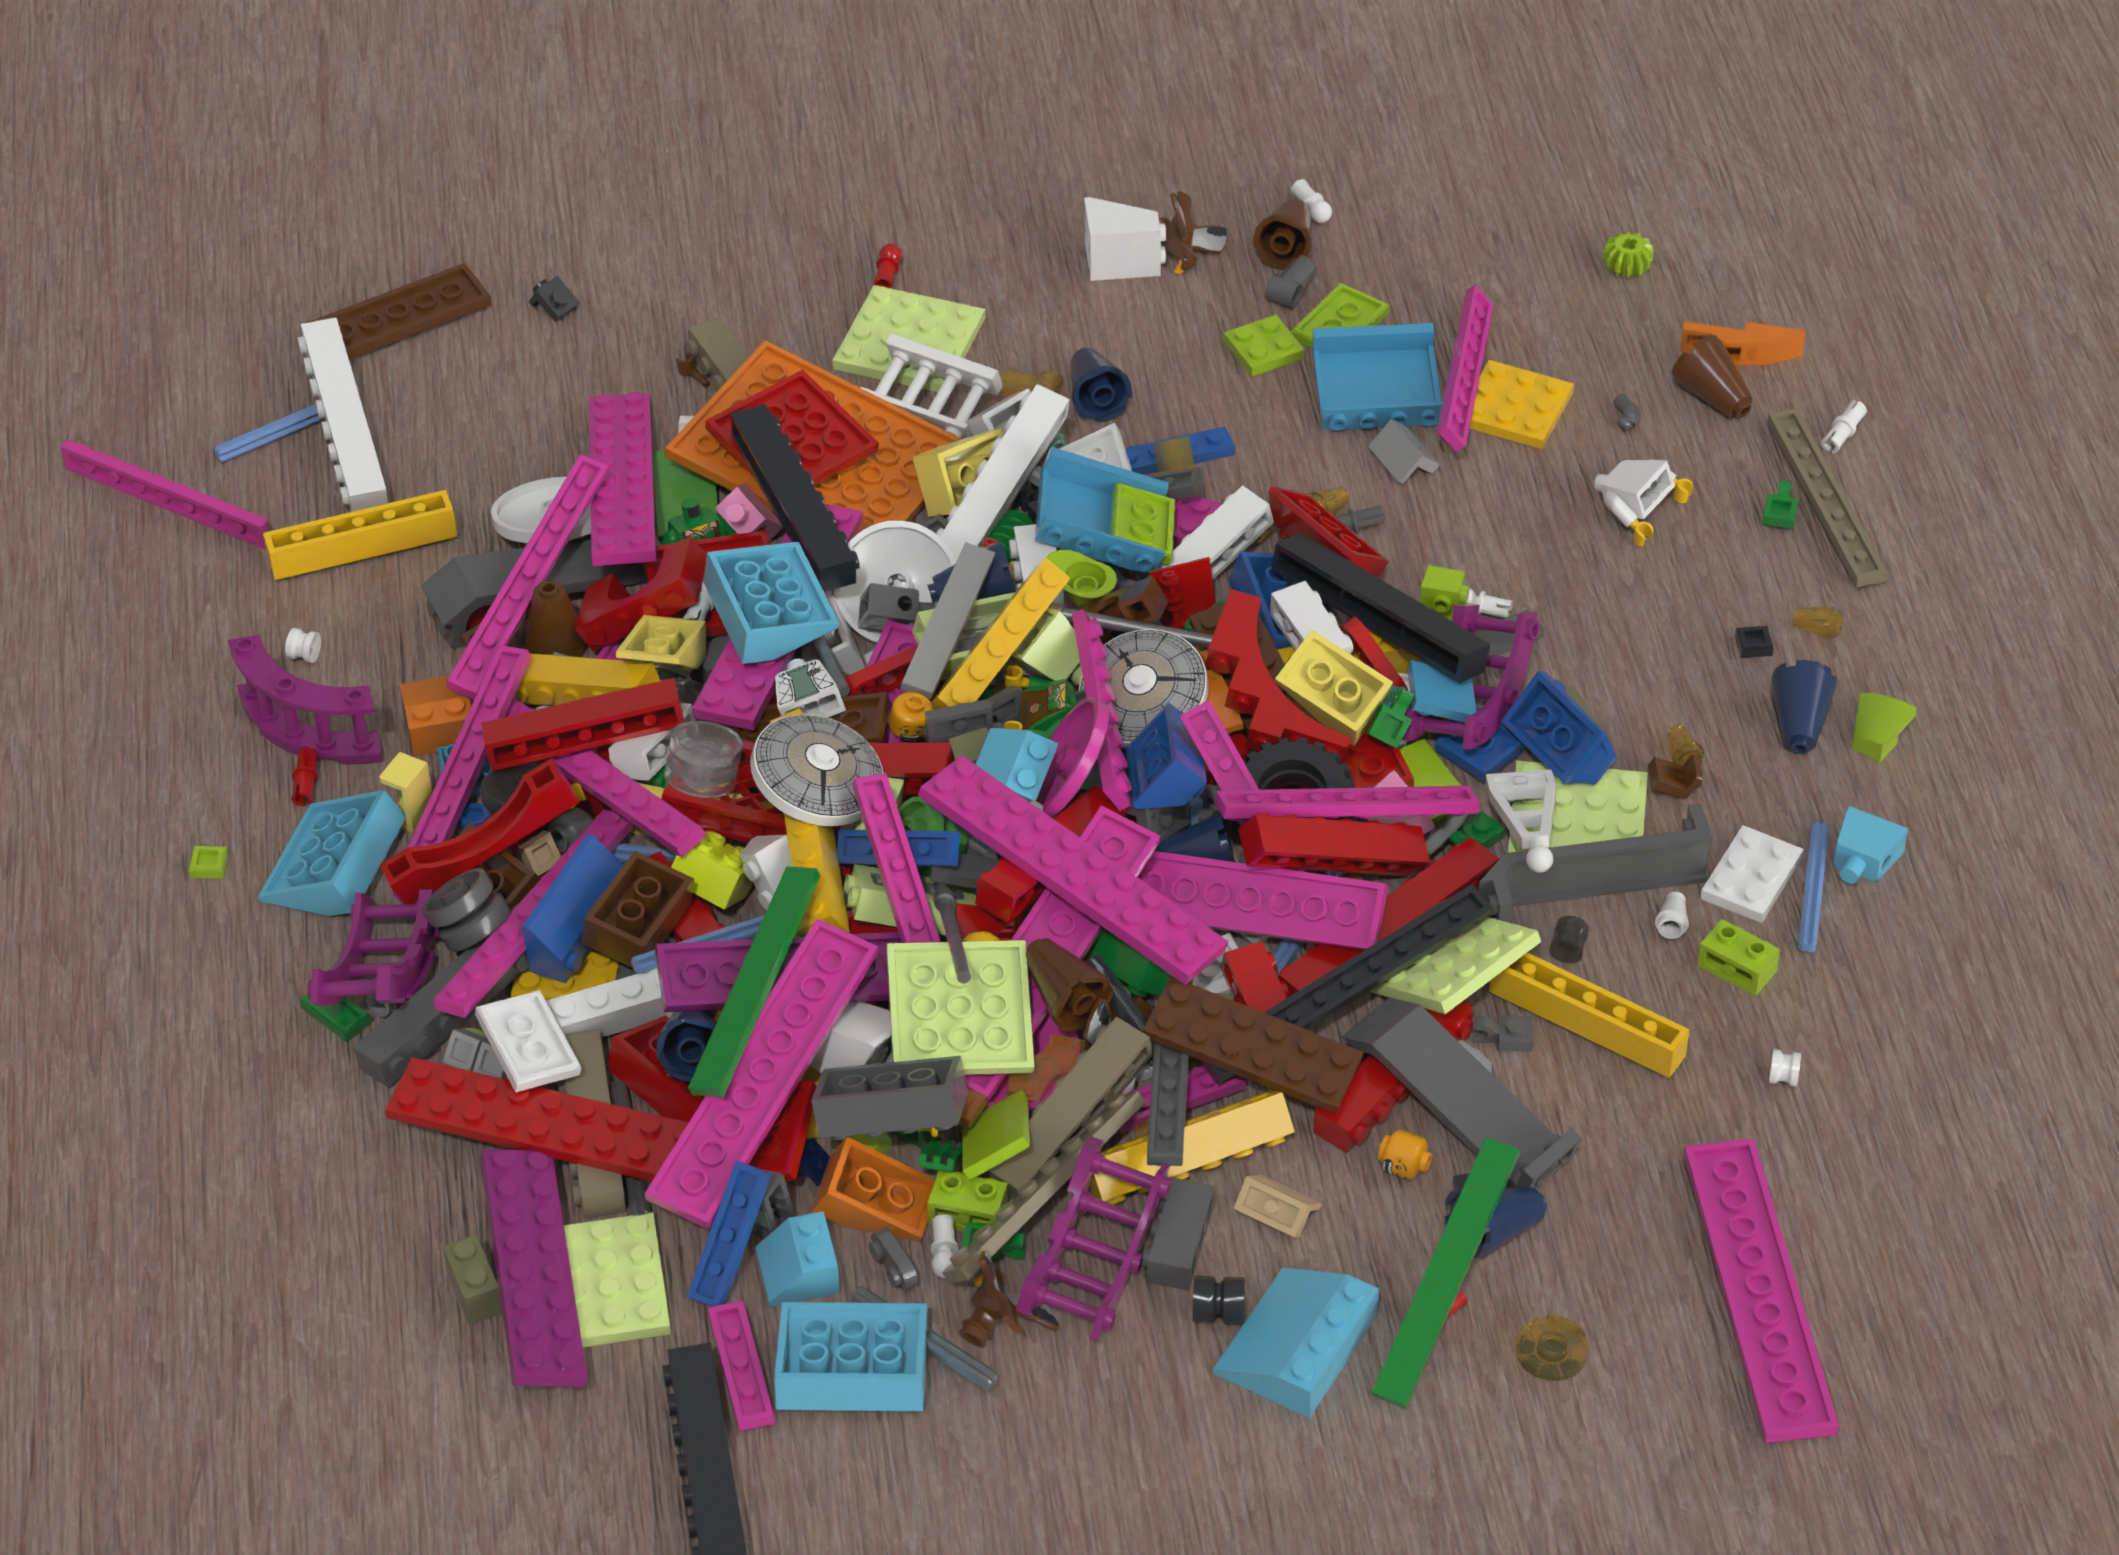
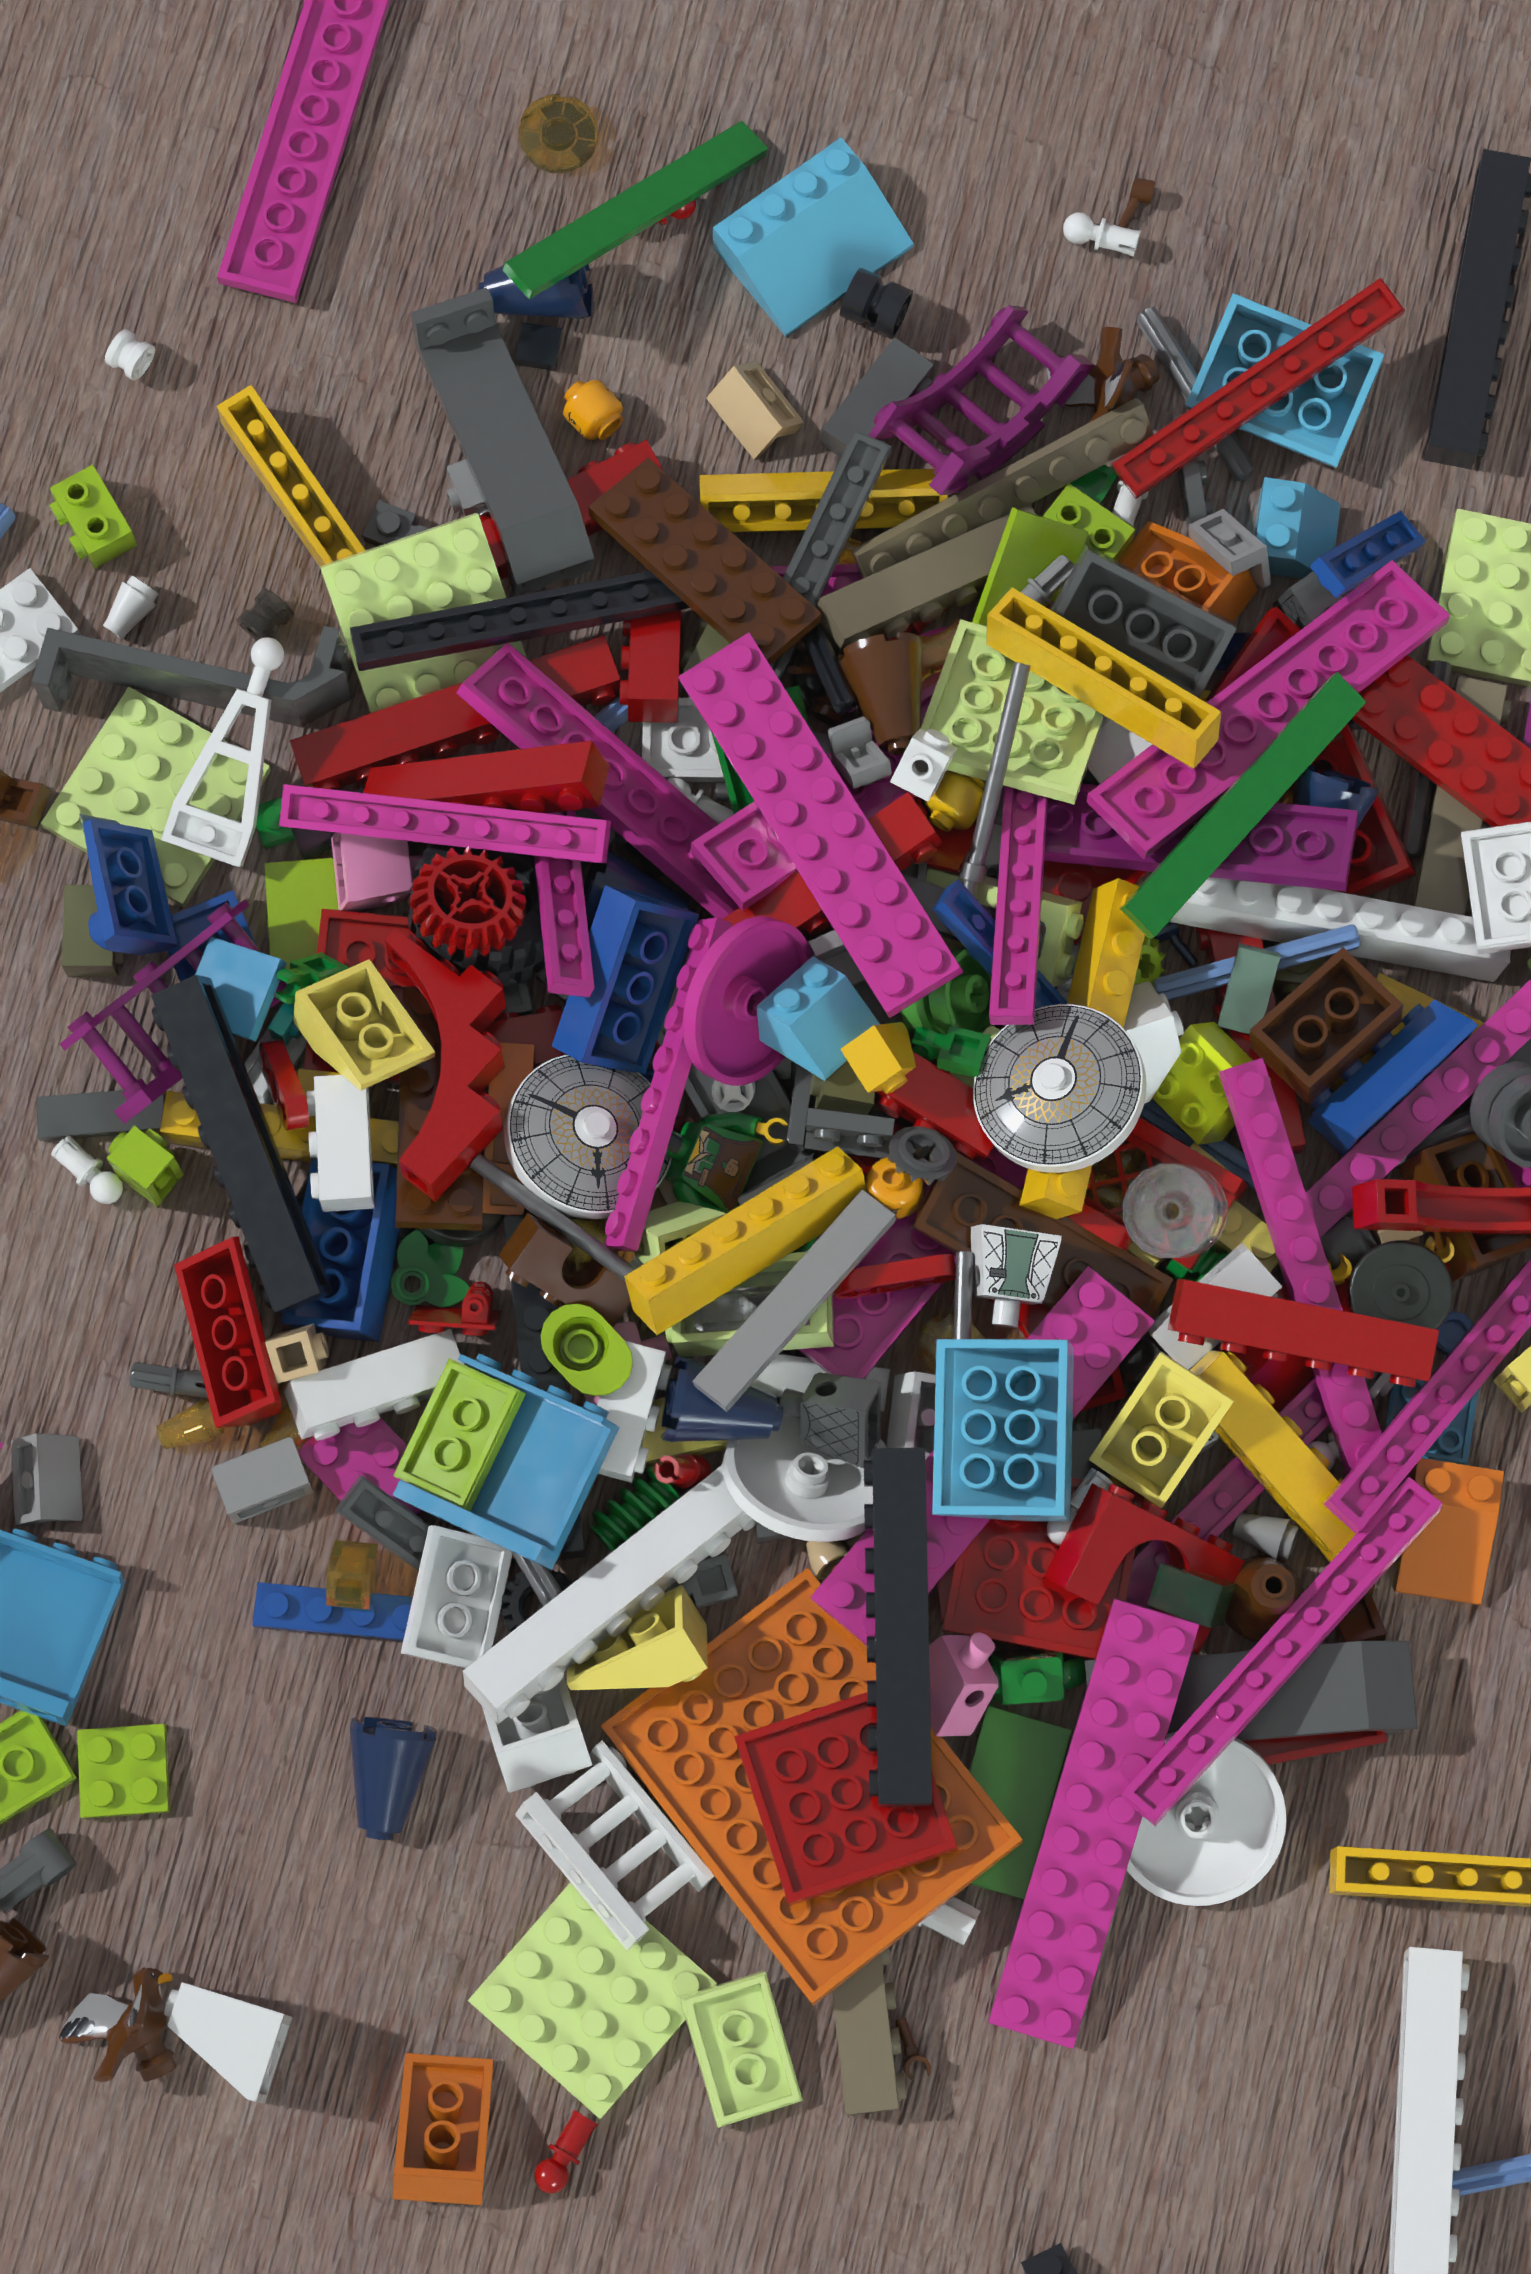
camera: 160 degrees left, 30 degrees up
(600, 584) = (1192, 1595): none -> clear green slope
(705, 921) = (1248, 988): none -> sand green tile
(741, 1366) = (1399, 431): dark pink plate -> none
(802, 333) = (741, 2048): none -> yellowish green tile
(844, 1206) = (1232, 545): none -> light grey panel
(867, 1321) = (1258, 388): none -> red tile
(894, 702) = (922, 1142): none -> dark grey gear
(900, 1018) = (1103, 678): none -> yellow brick
(904, 781) = (956, 1052): none -> green plate
(953, 735) = (881, 1057): none -> yellow slope
(967, 249) = (442, 2129): none -> orange slope
(983, 1116) = (1049, 581): none -> light grey axle
(1010, 921) = (924, 763): none -> white brick
(1017, 381) = (464, 1802): clear yellow piece -> none
(1039, 1472) = (1141, 192): none -> reddish brown hand
(1064, 927) = (856, 753): none -> light grey bracket
(1077, 1422) = (1080, 229): none -> white pin
(1263, 476) = (262, 1480): none -> light grey panel
(1273, 524) = (297, 1353): none -> tan brick
(1278, 745) = (458, 882): none -> red gear

